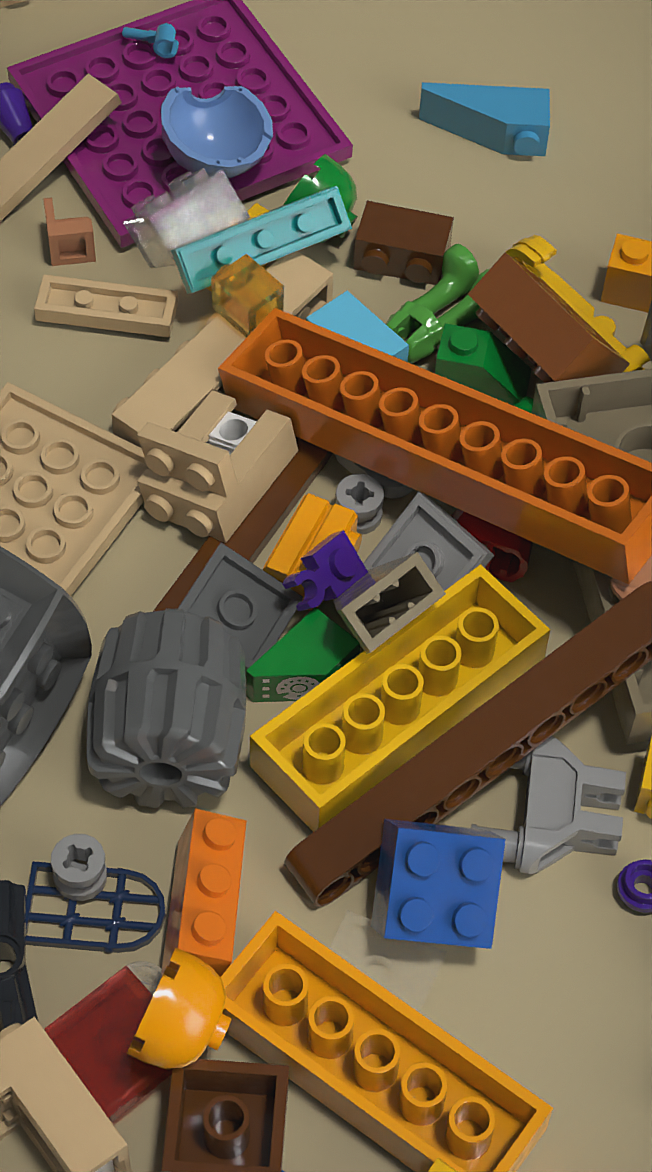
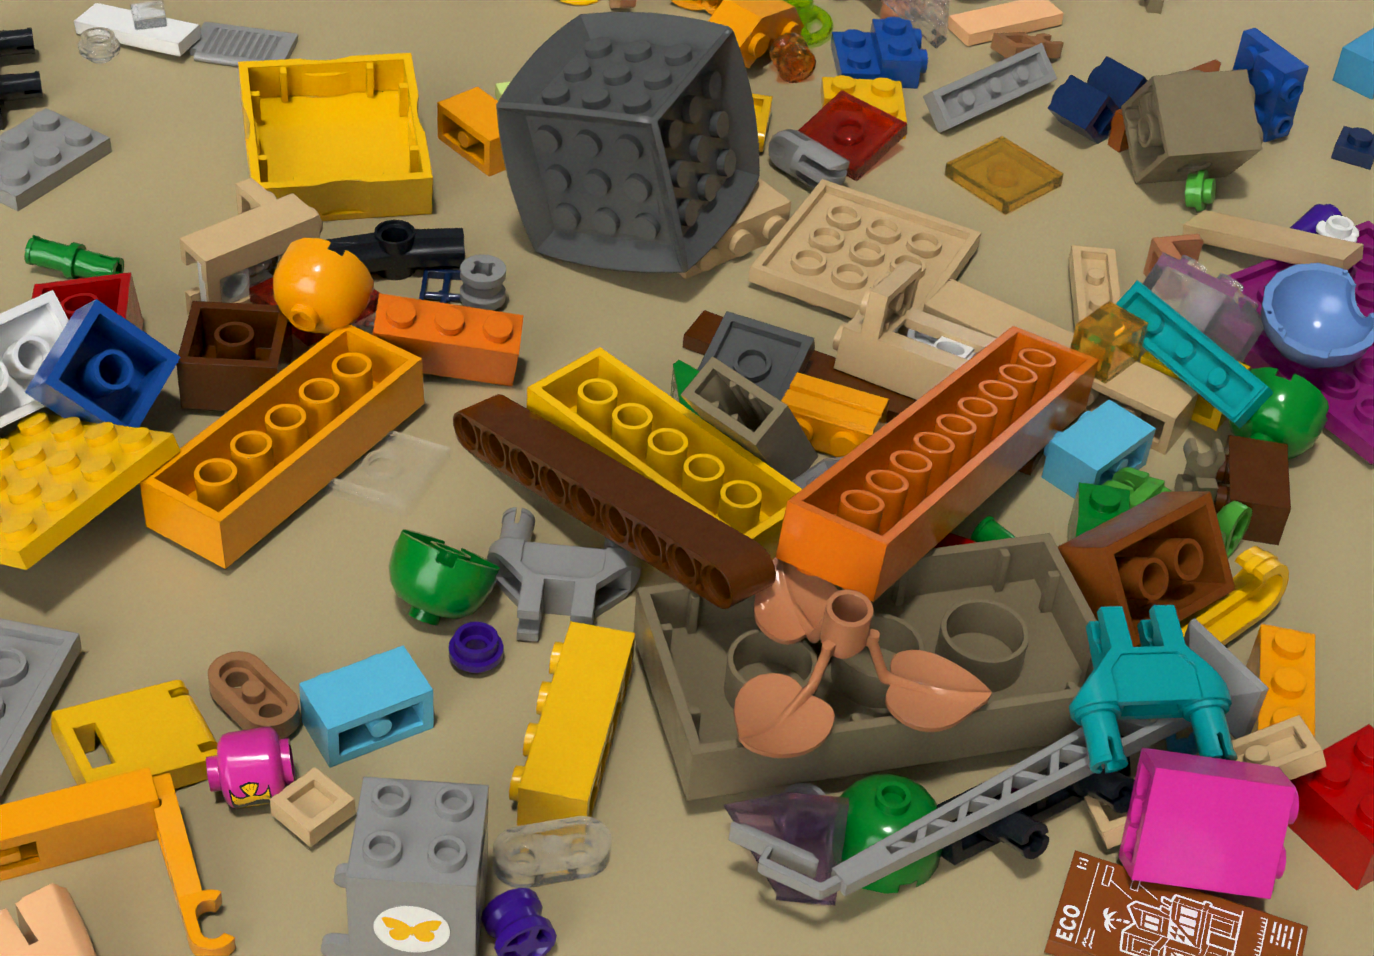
camera: 85 degrees right, 15 degrees down
(42, 93) = (1338, 227): none -> white plate
(167, 708) = (624, 294): dark grey wheel -> none
(330, 571) = (806, 403): dark purple plate -> none
(405, 277) = (1200, 468): none -> dark tan plate
(438, 884) = (454, 465): blue brick -> none
(576, 902) = (439, 578): none -> green cylinder

